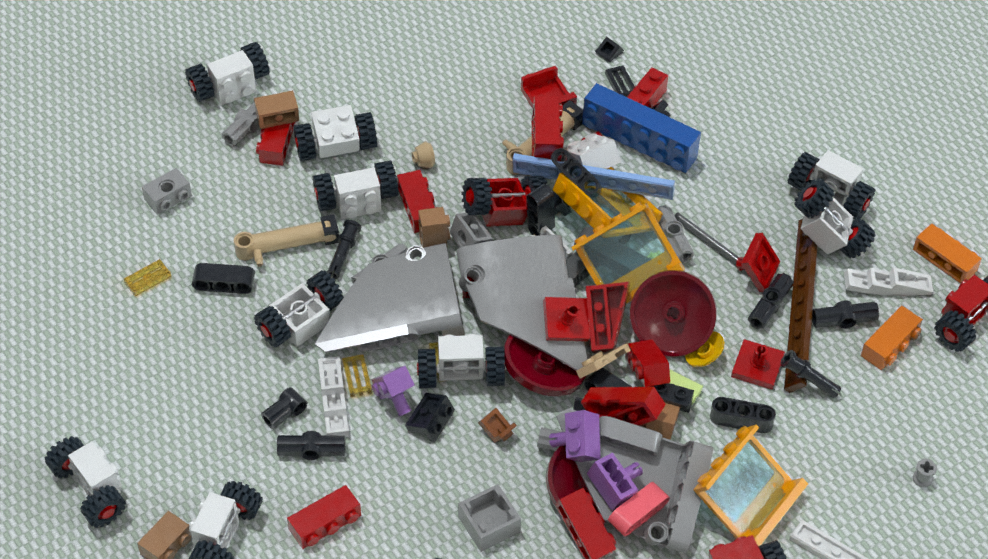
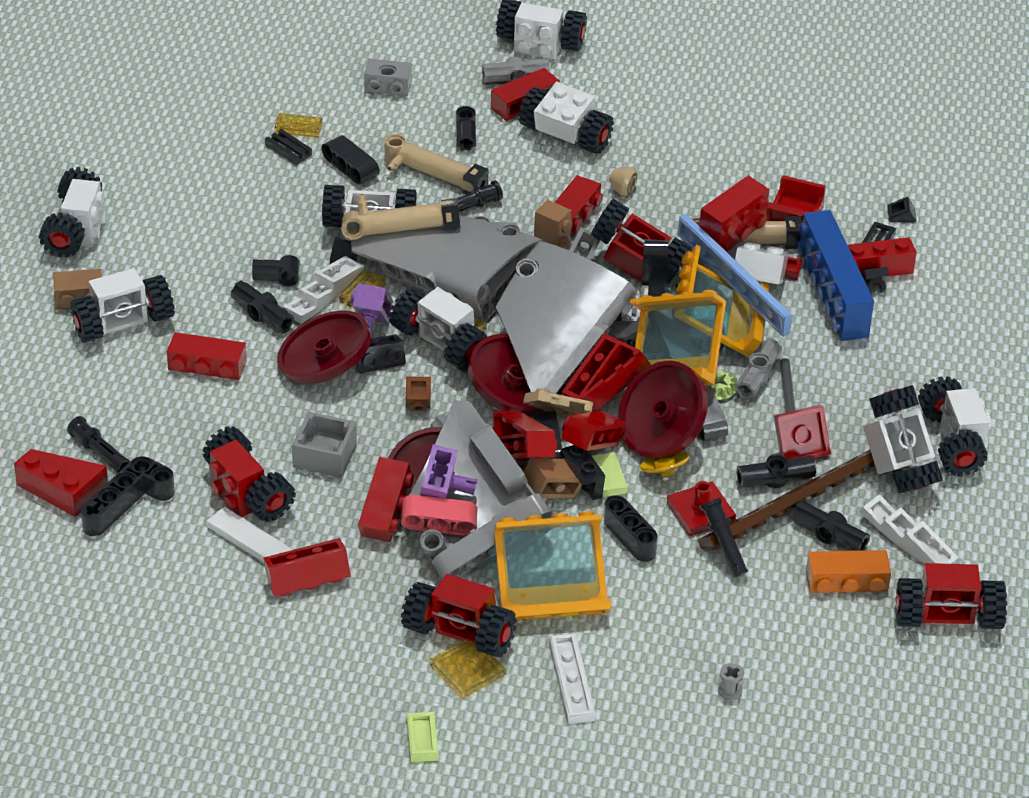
camera: 45 degrees right, 10 degrees down
(162, 297) = (291, 145): none -> black tile
(269, 191) = (465, 127): none -> black piece
(276, 109) = (538, 68): medium nougat brick -> none
(310, 356) = (340, 249): none -> black slope
(315, 329) = (400, 219): none -> tan piece
(356, 191) = (529, 165): brick -> none
(401, 443) = (324, 347): none -> dark red dish
(566, 319) = (562, 350): red tile -> none
(568, 167) = (713, 255): black beam -> none
(580, 436) = (450, 422): medium lavender brick -> none
(947, 253) = (998, 550): orange brick -> none

